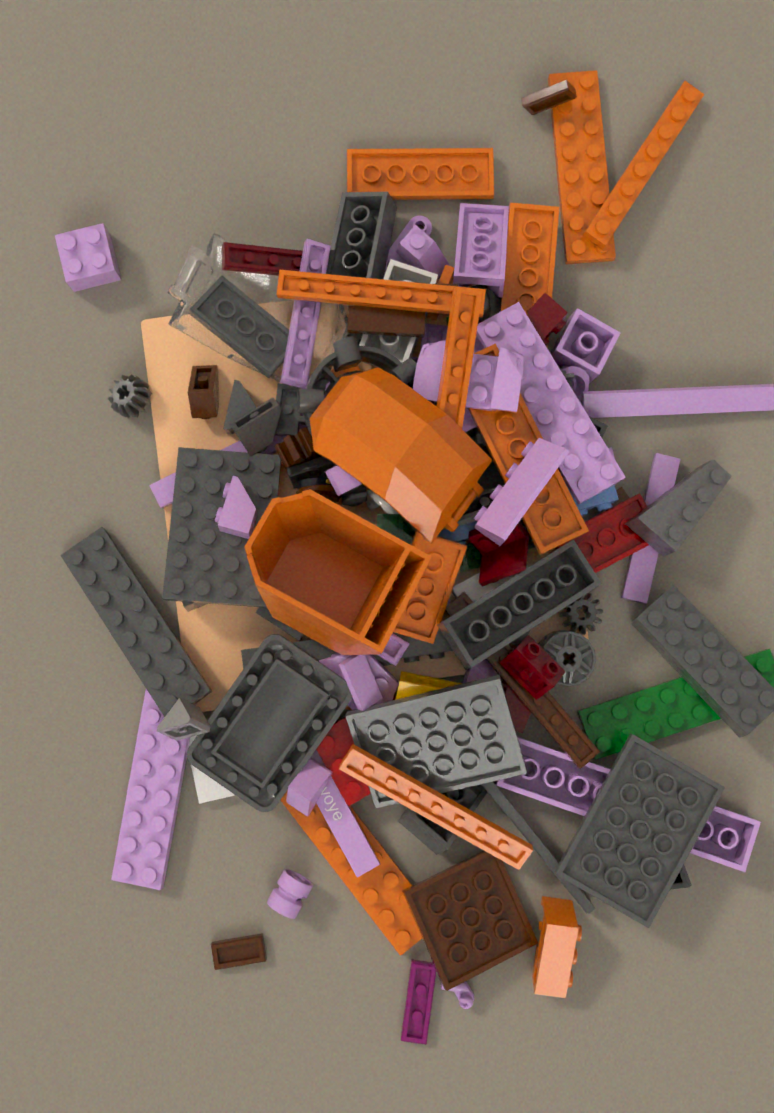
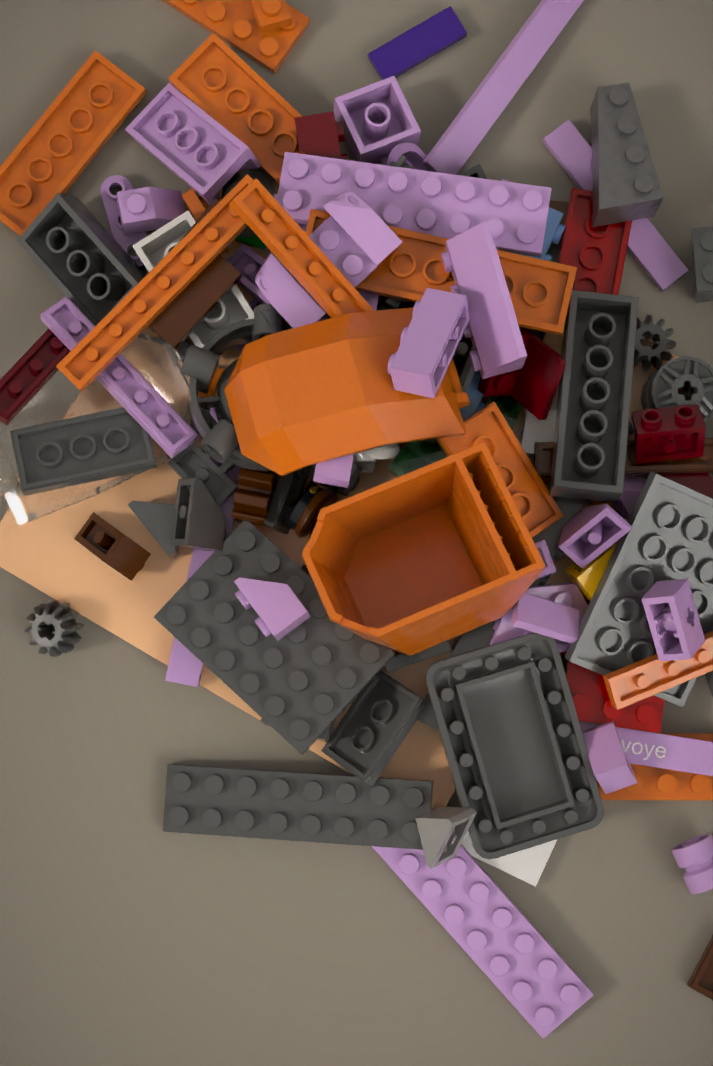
camera: 45 degrees left, 0 degrees up
(217, 631) = (374, 727): none -> dark grey tile
(419, 760) = (673, 619): none -> lavender brick
(433, 668) = (592, 533): none -> lavender slope
(465, 475) = (429, 342): none -> lavender brick
(652, 333) = (417, 44): none -> dark purple tile

